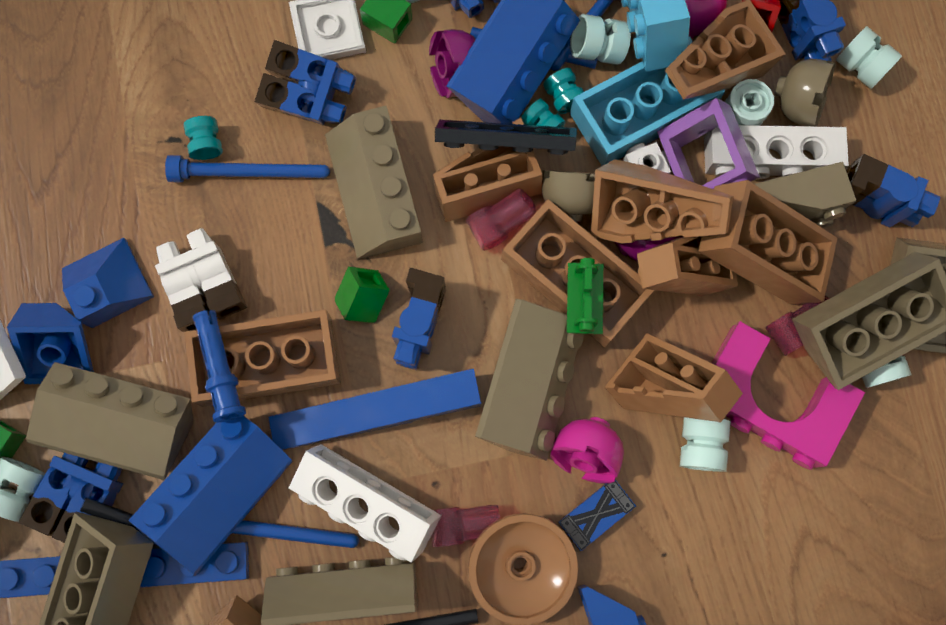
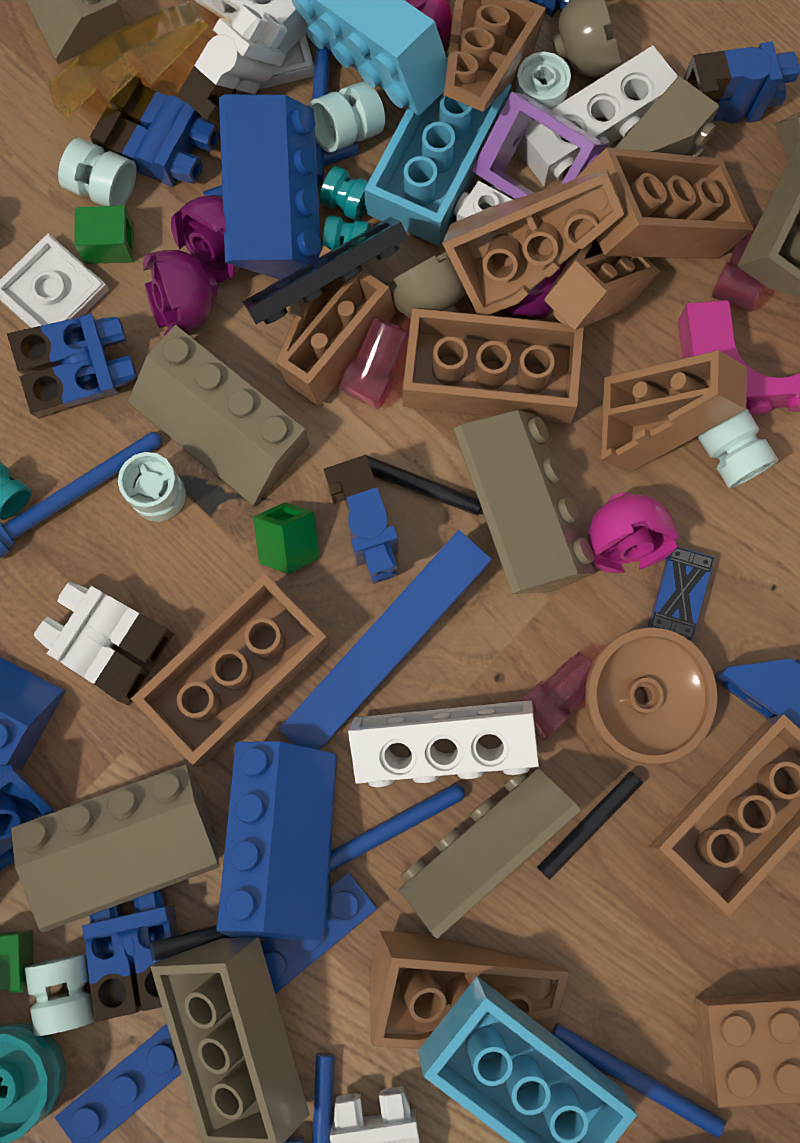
camera: 30 degrees left, 0 degrees up
(221, 381) = (209, 719): blue pin -> none
(294, 195) = (151, 486): none -> light aqua wheel
(408, 84) = (179, 289): none -> magenta cylinder
(473, 317) = (424, 486): none -> black bar
(585, 297) = (521, 379): green hinge -> none

